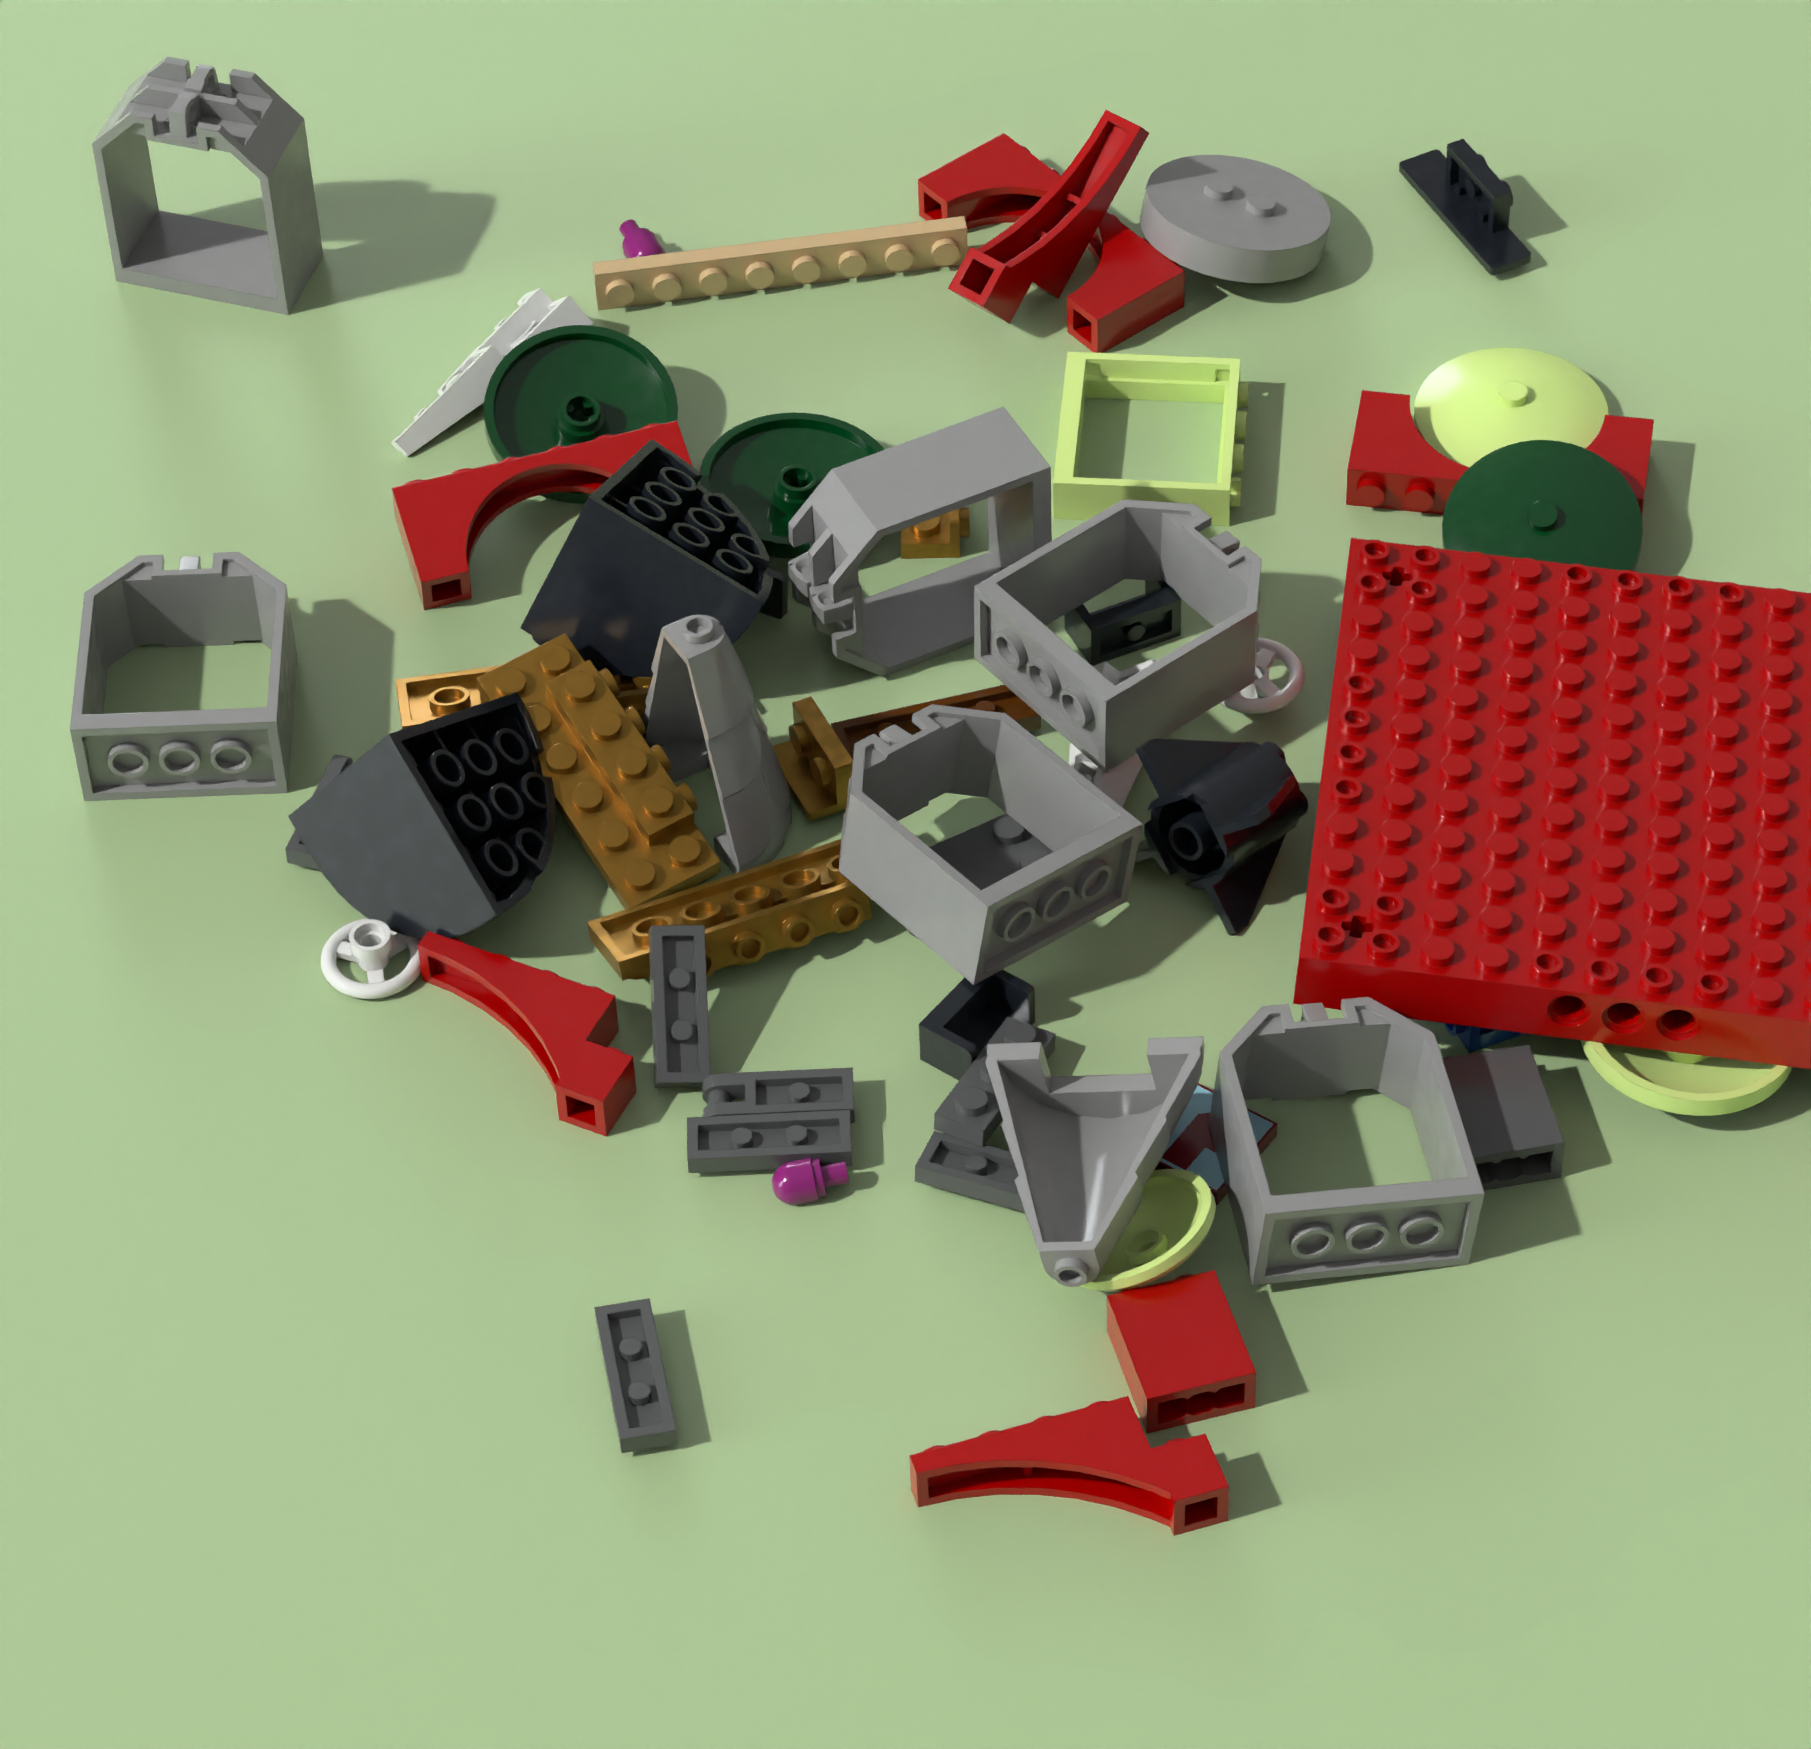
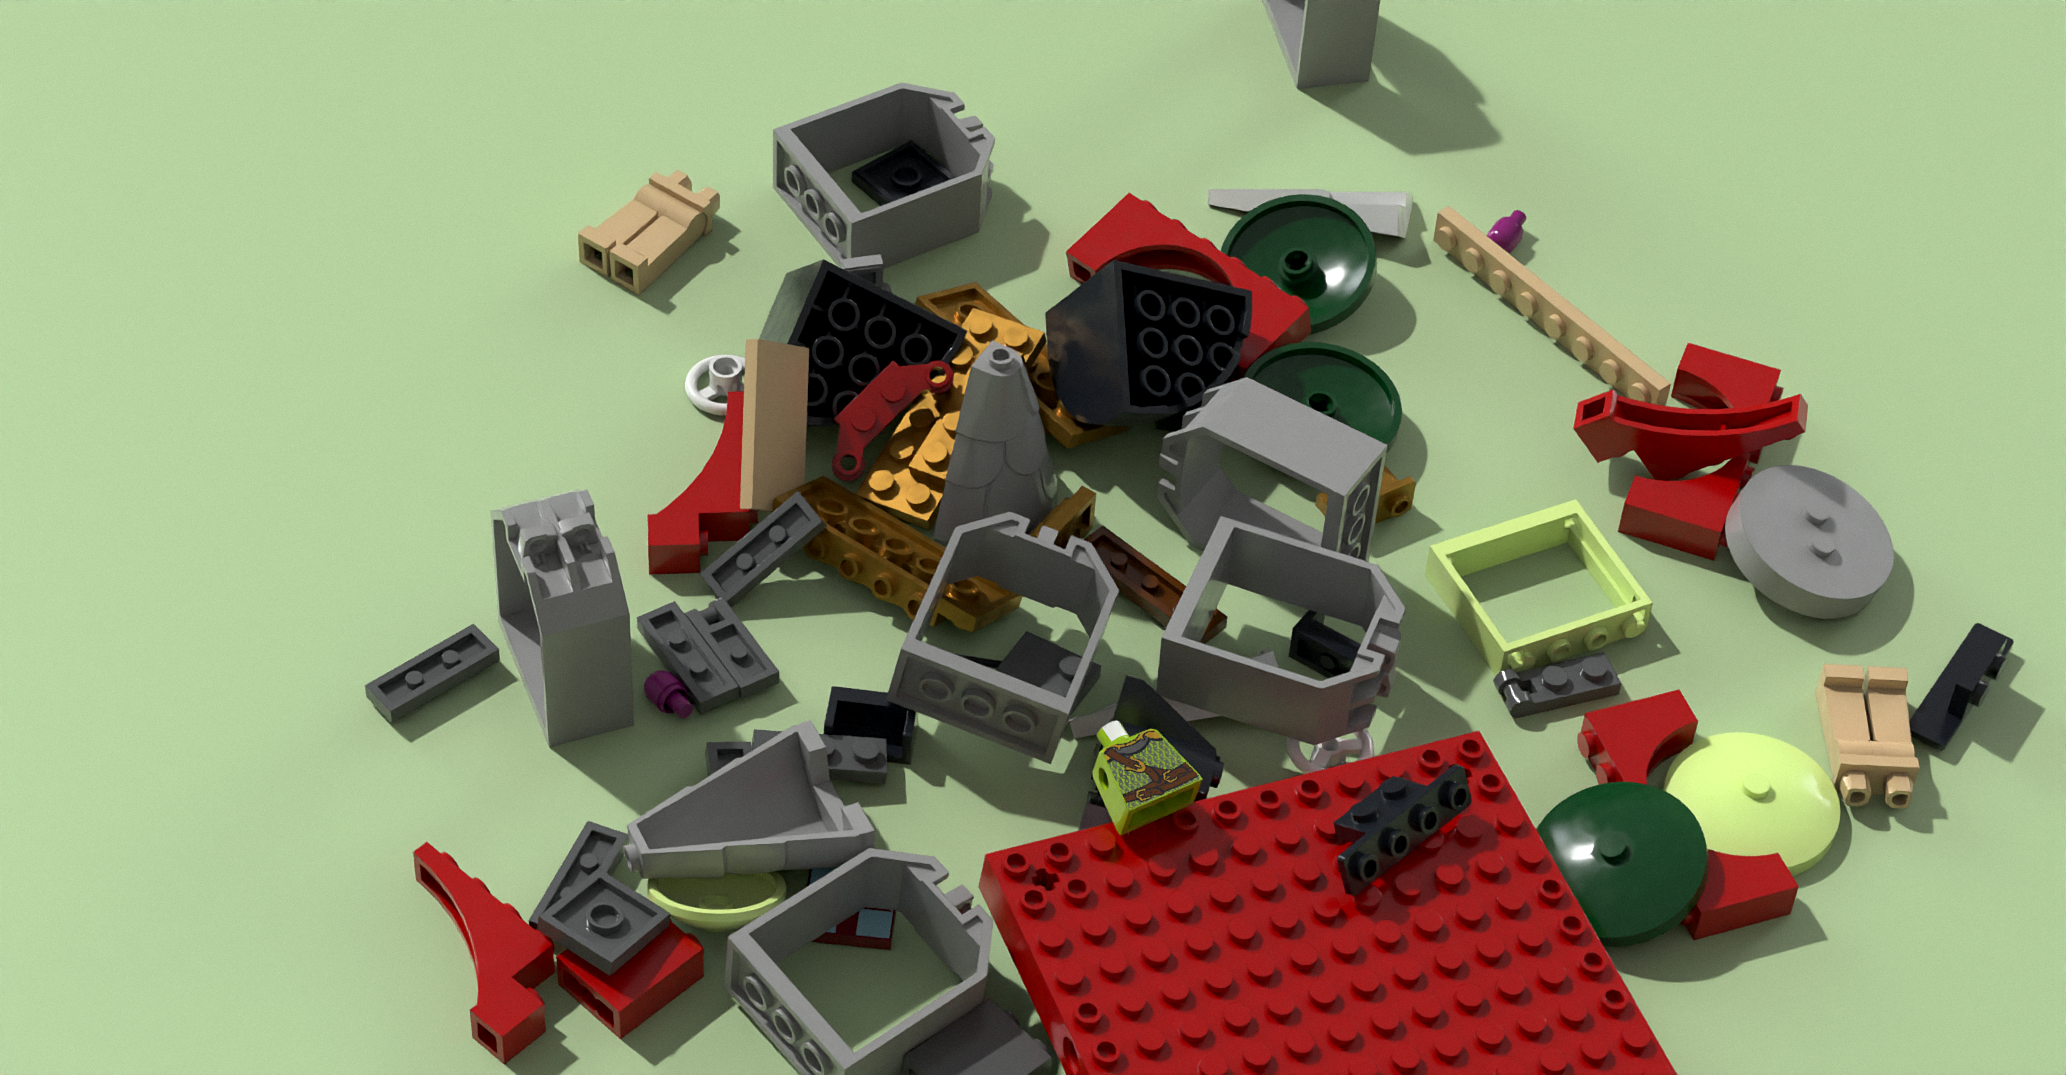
camera: 55 degrees right, 0 degrees up
(87, 890) = (649, 231): none -> tan hips
(175, 675) = (899, 174): none -> black tile
(330, 756) = (866, 267): none -> light grey tile
(541, 907) = (773, 422): none -> tan tile
(563, 820) = (878, 406): none -> red plate
(690, 1251) = (564, 615): none -> light grey container
(1030, 1352) = (593, 849): none -> dark grey plate
(1139, 1332) = (604, 921): none -> dark grey plate
(1272, 482) = (1557, 685): none -> dark grey plate
(1295, 787) = (1141, 777): none -> torso
(1443, 635) = (1395, 823): none -> black bracket
(1486, 297) = (1868, 733): none -> tan hips

